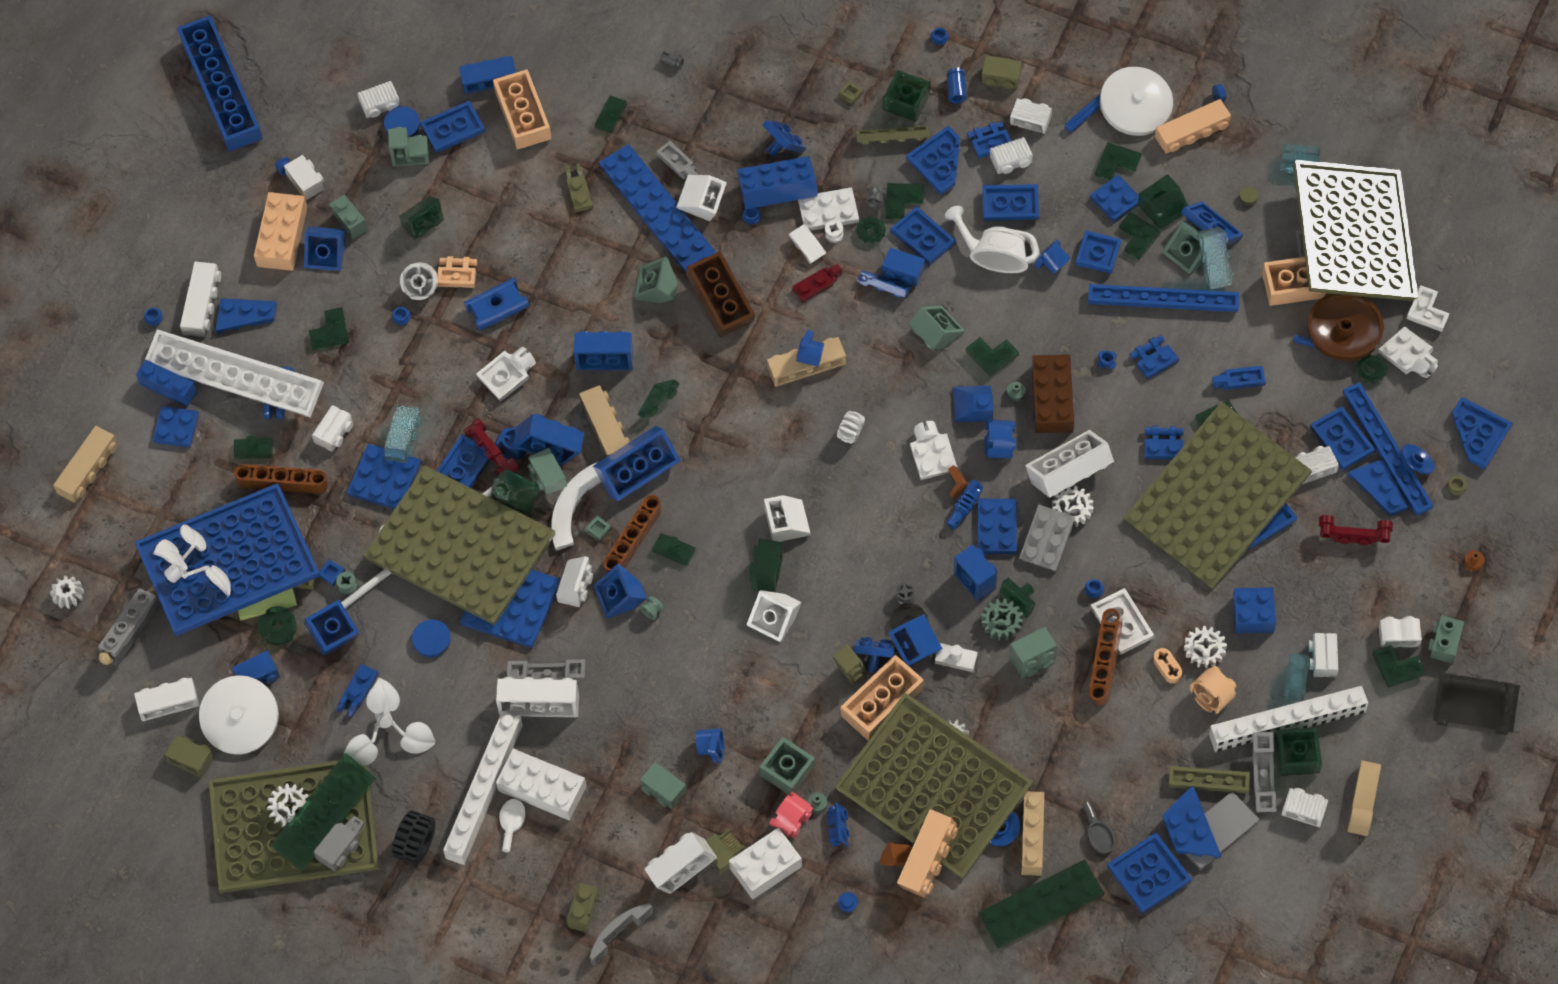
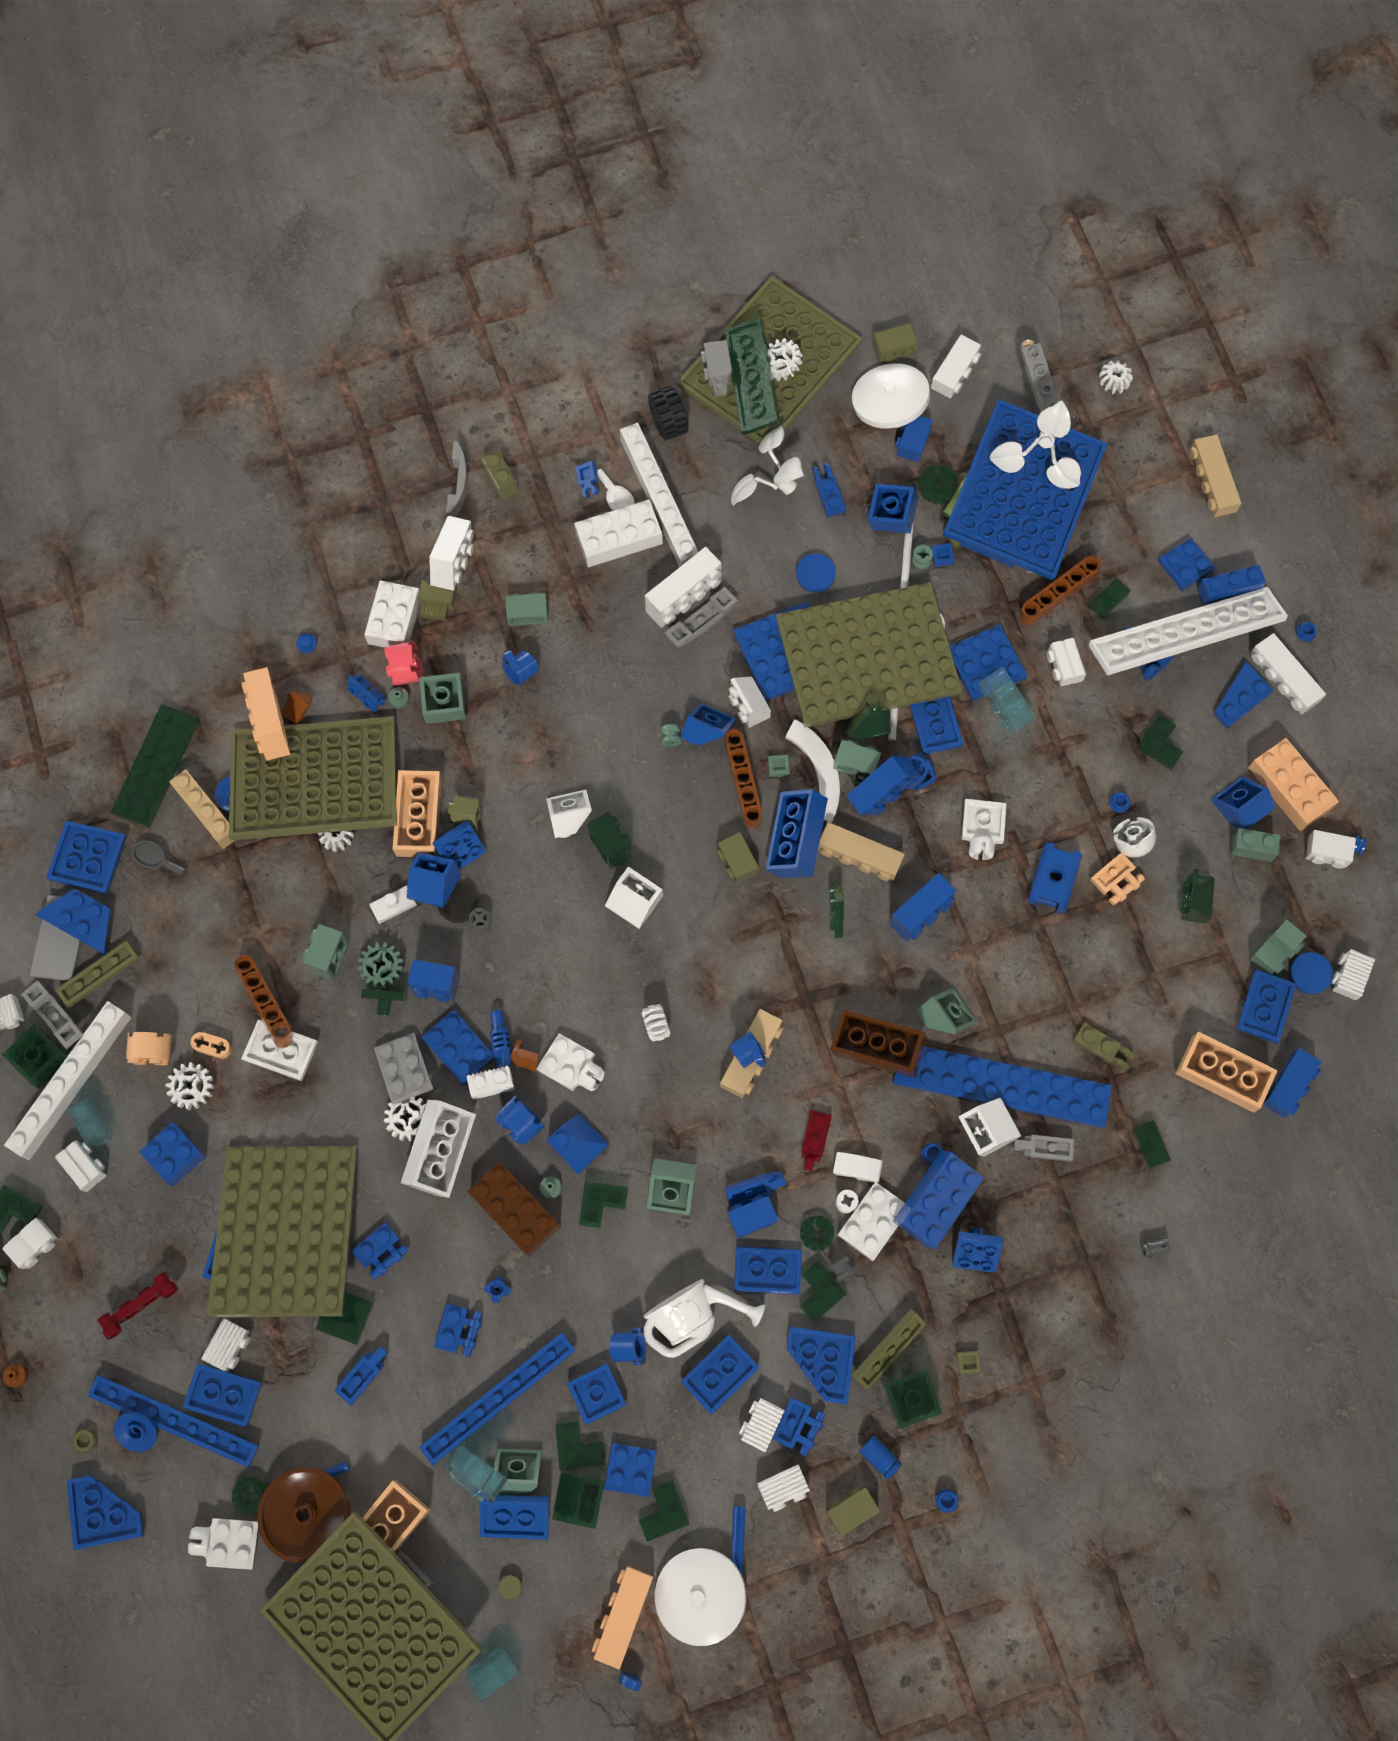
camera: 135 degrees right, 10 degrees up
(477, 431) = (931, 746): dark red plate -> none
(518, 850) = (586, 477): none -> blue plate
(674, 549) = (702, 800): clear green tile -> none
(690, 488) = (737, 858): none -> olive brick
(996, 481) = (490, 1082): none -> white brick
(1094, 588) = (328, 1060): blue plate -> none
(1380, 485) = (154, 1378): blue wing -> none
(1423, 311) = (246, 1602): white plate -> none

